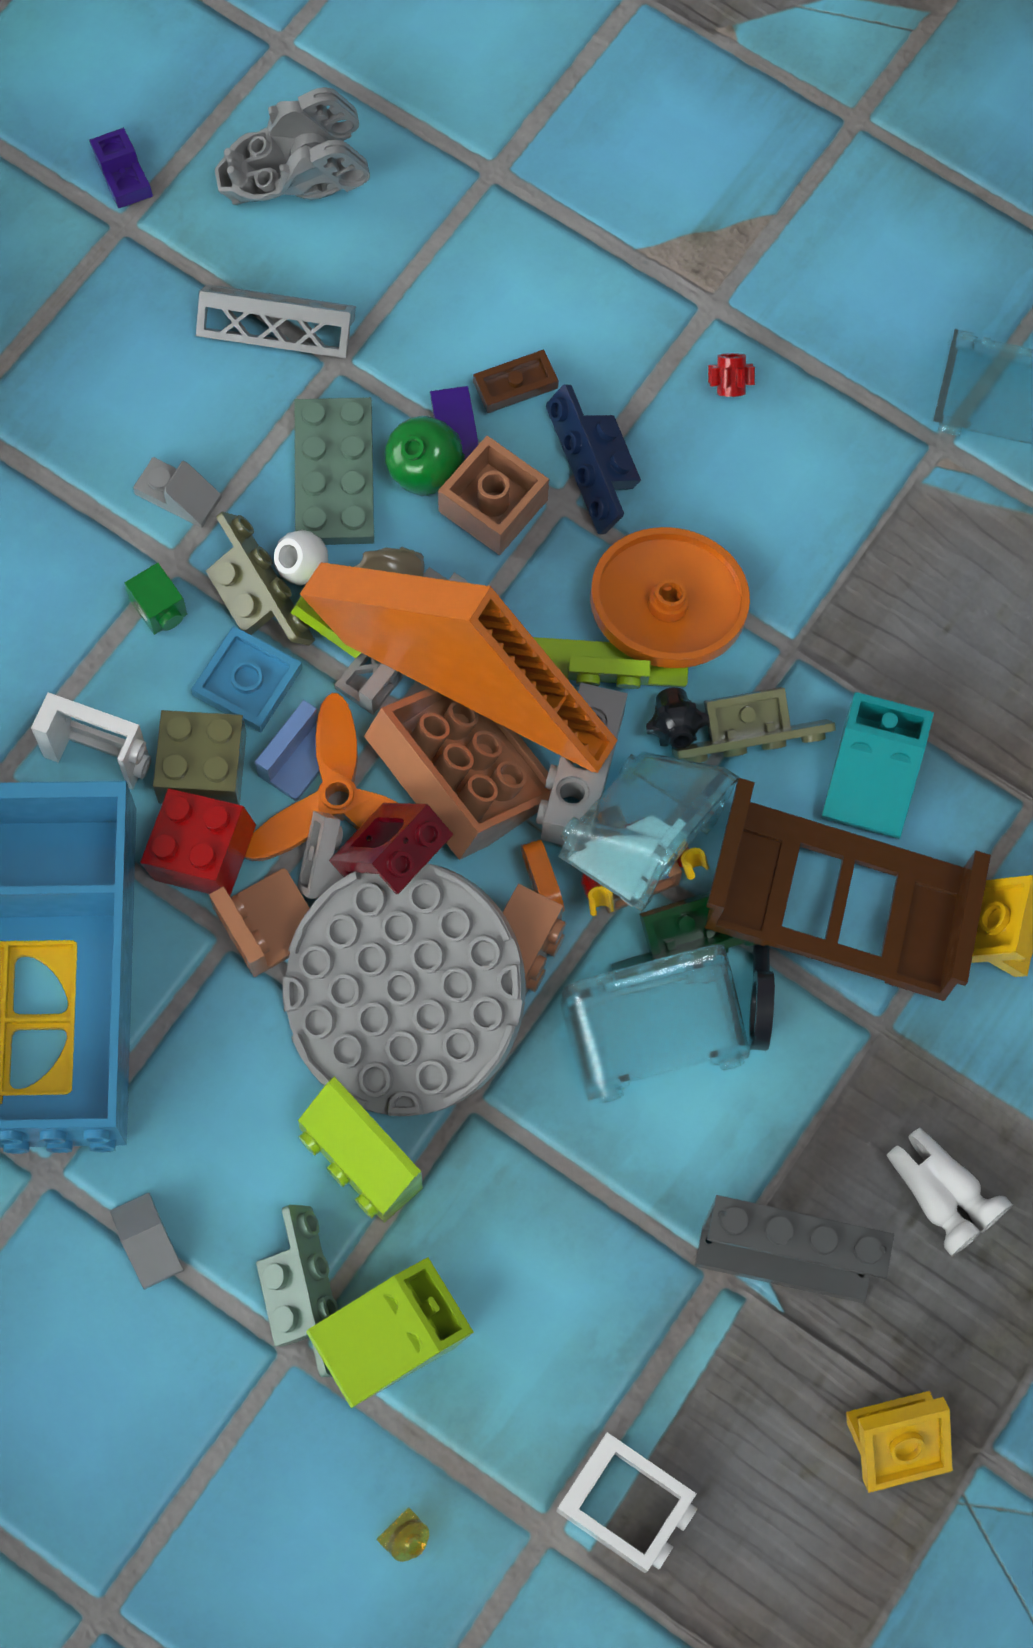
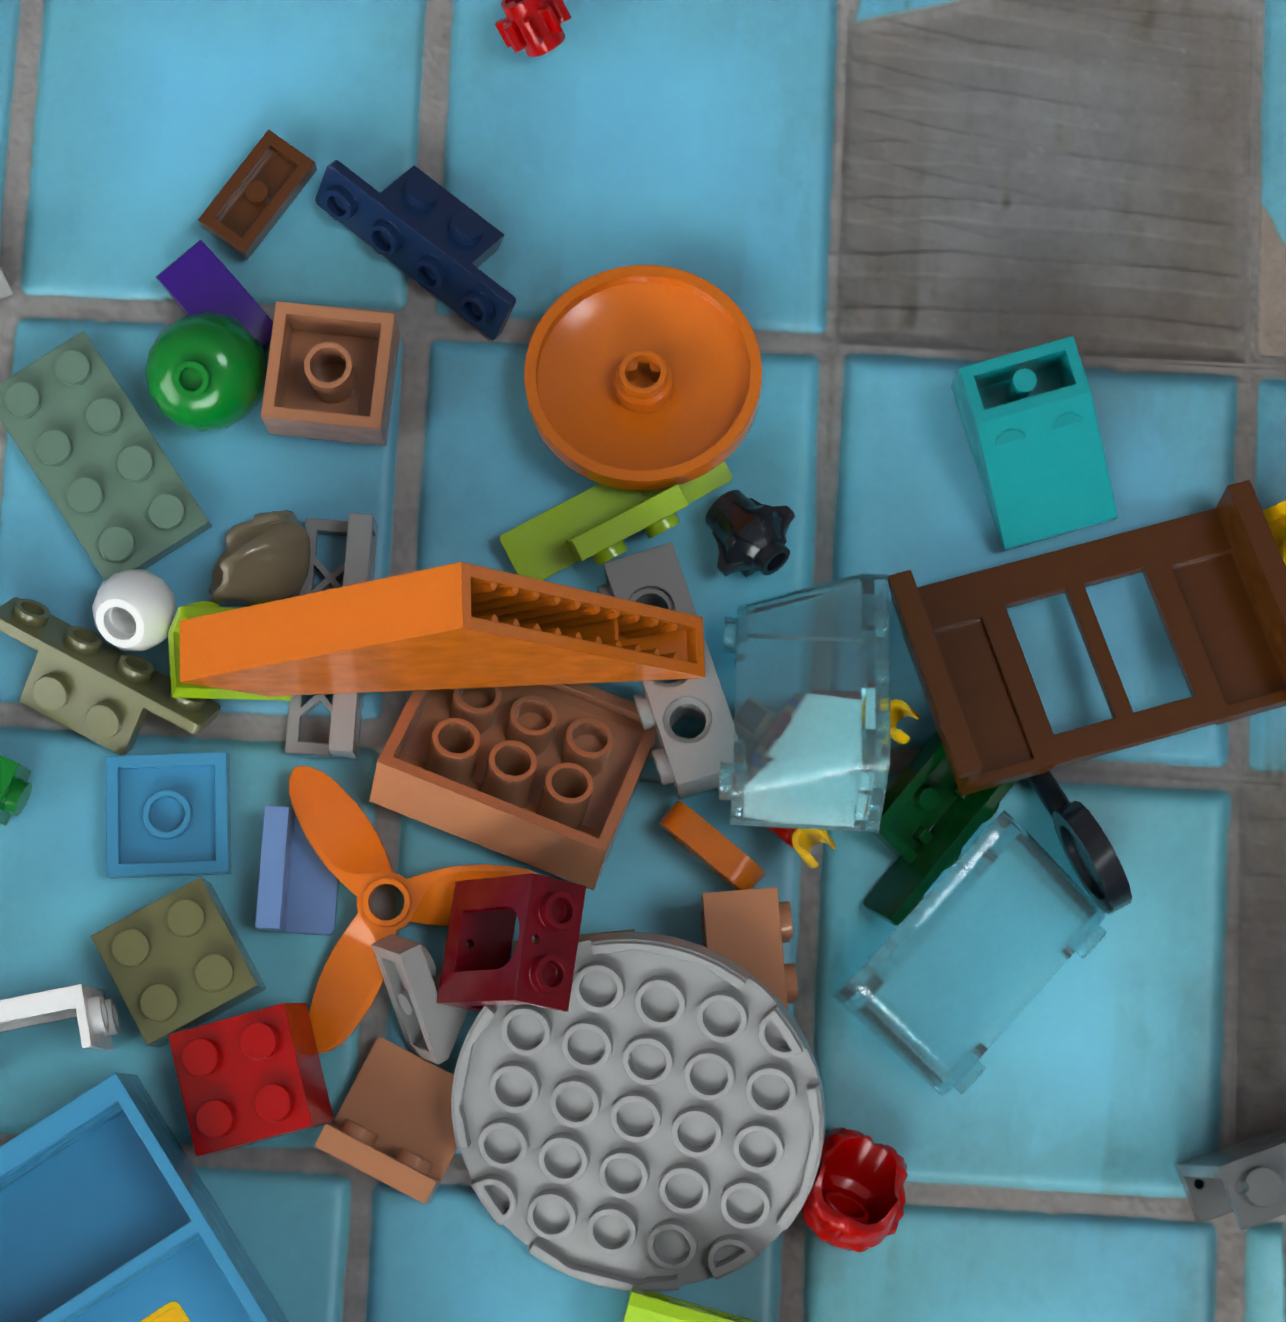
camera: 30 degrees left, 10 degrees up
(501, 1116) = (856, 1191): none -> red hair
(751, 721) = (845, 482): olive bracket -> none

